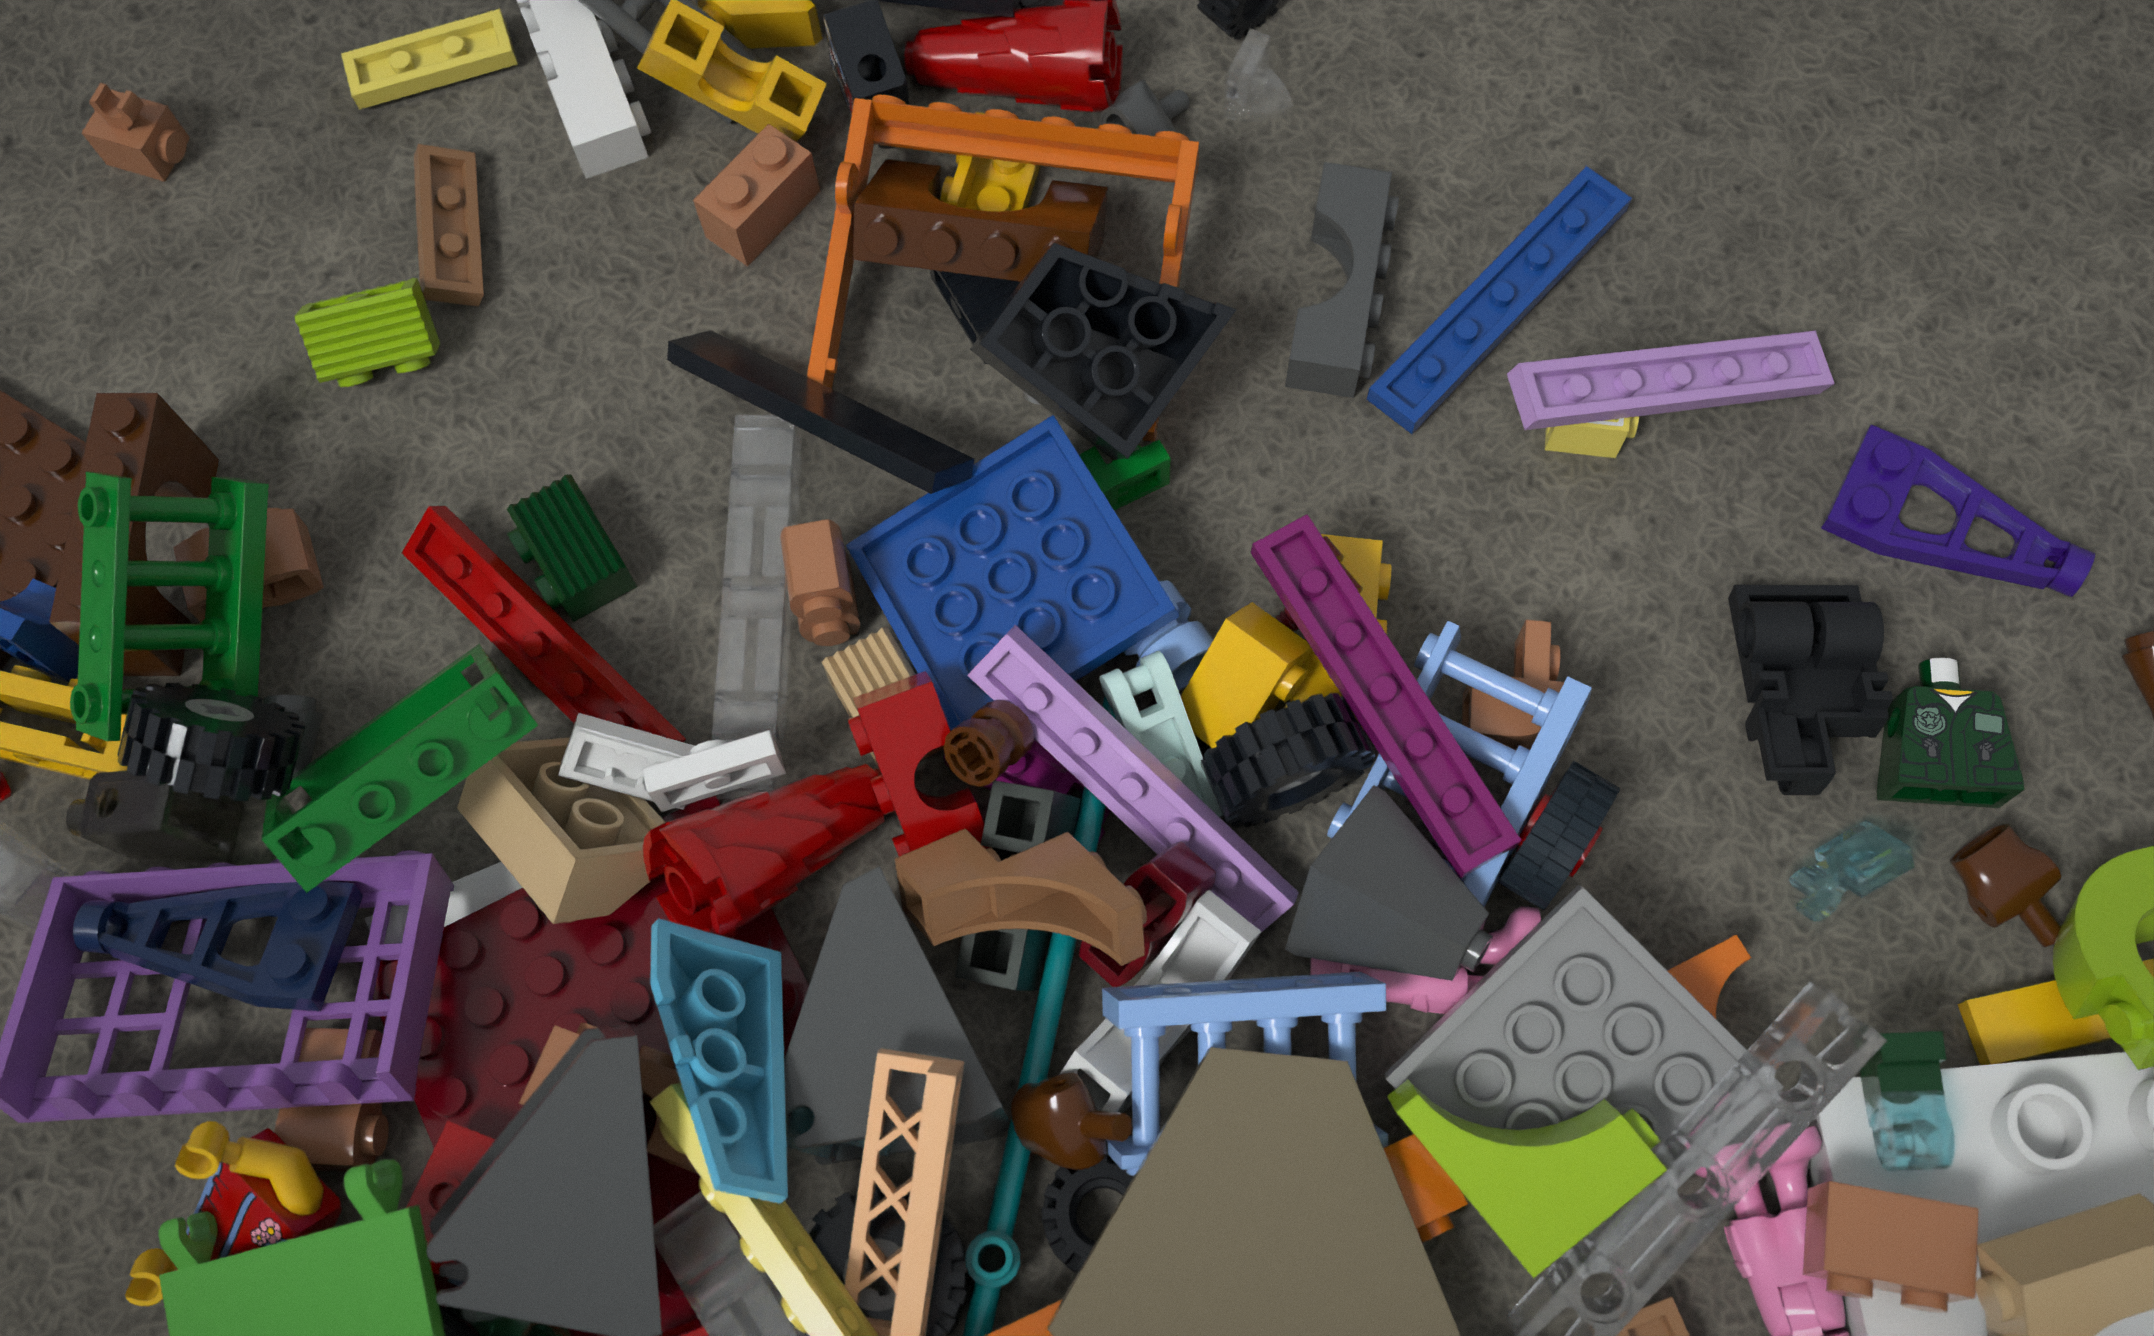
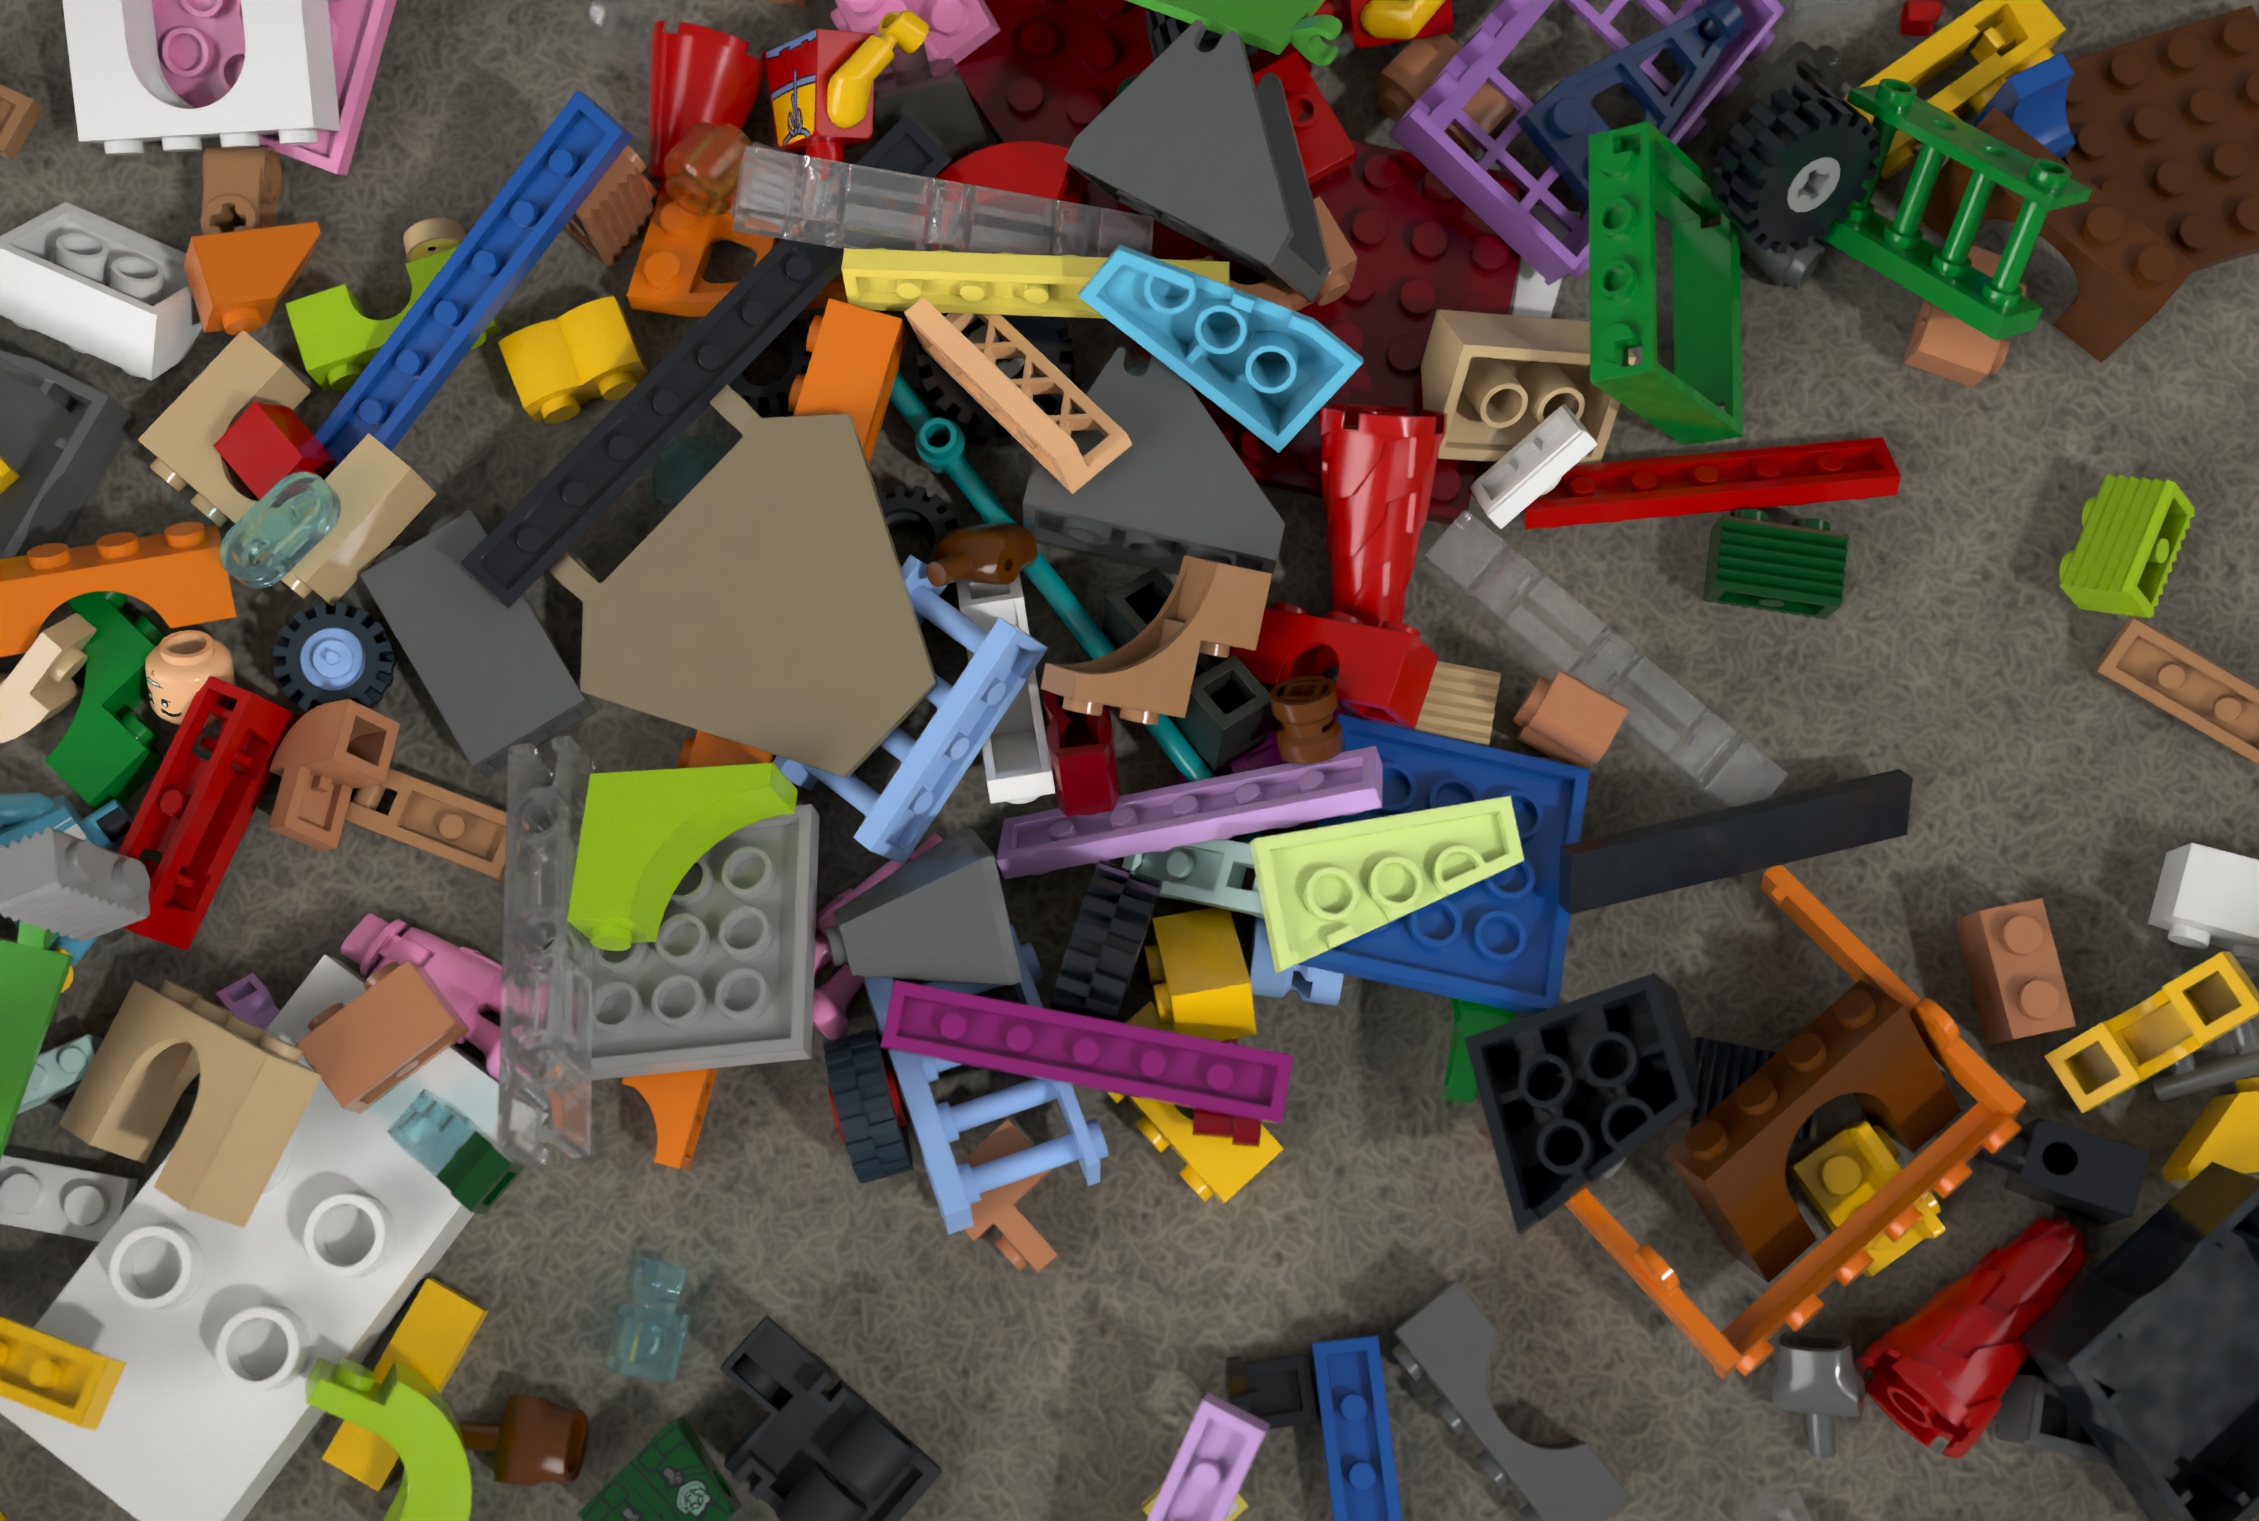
camera: 125 degrees right, 10 degrees up
(713, 770) = (1470, 512): white plate -> none
(1082, 613) = (1362, 874): none -> yellowish green wing
(1469, 432) = (1273, 1389): none -> black tile

